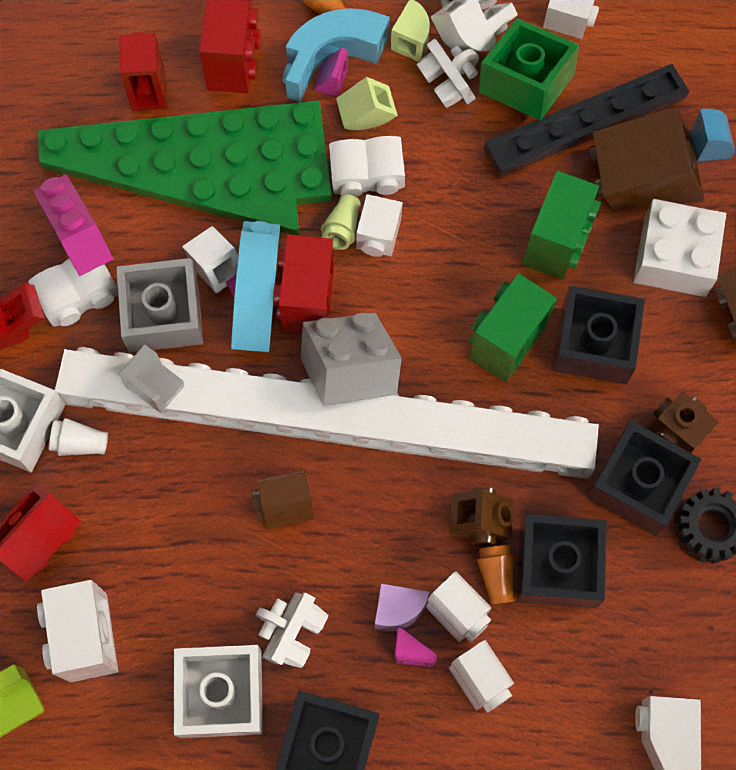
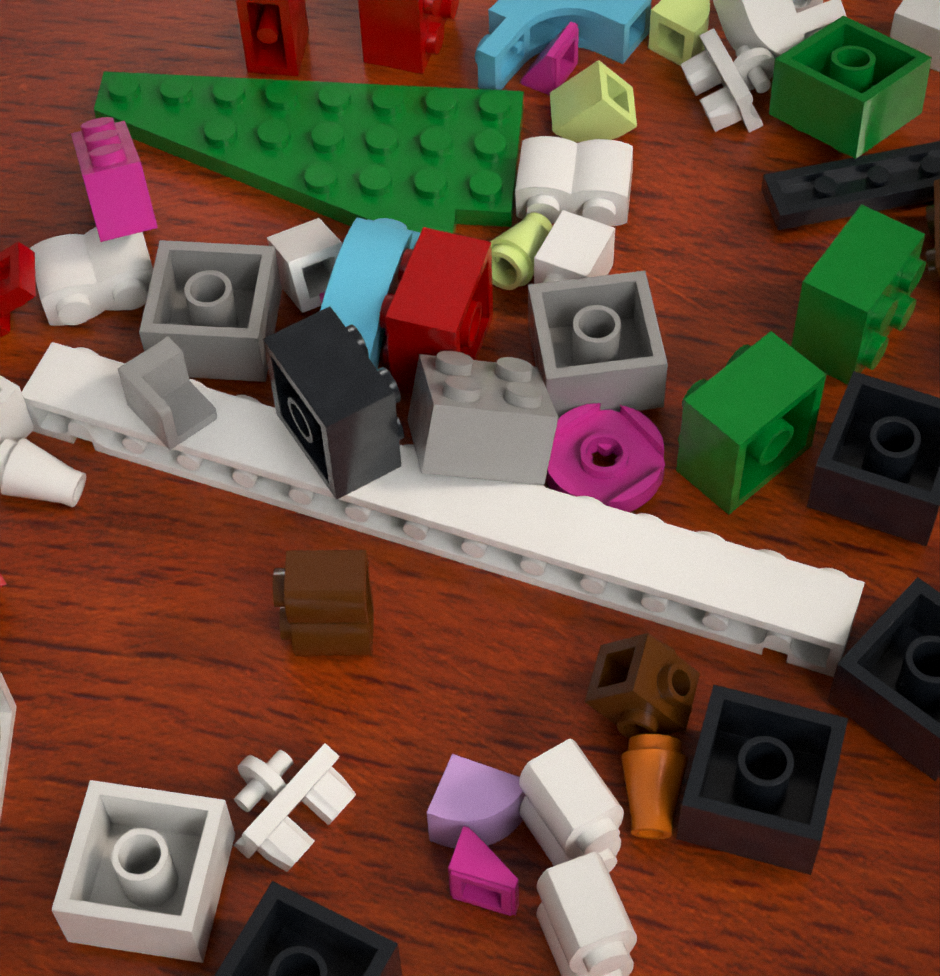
camera: 15 degrees right, 15 degrees down
(261, 371) = (335, 401): none -> black brick
(407, 287) = (598, 342): none -> light grey brick
(446, 363) = (627, 434): none -> dark pink plate

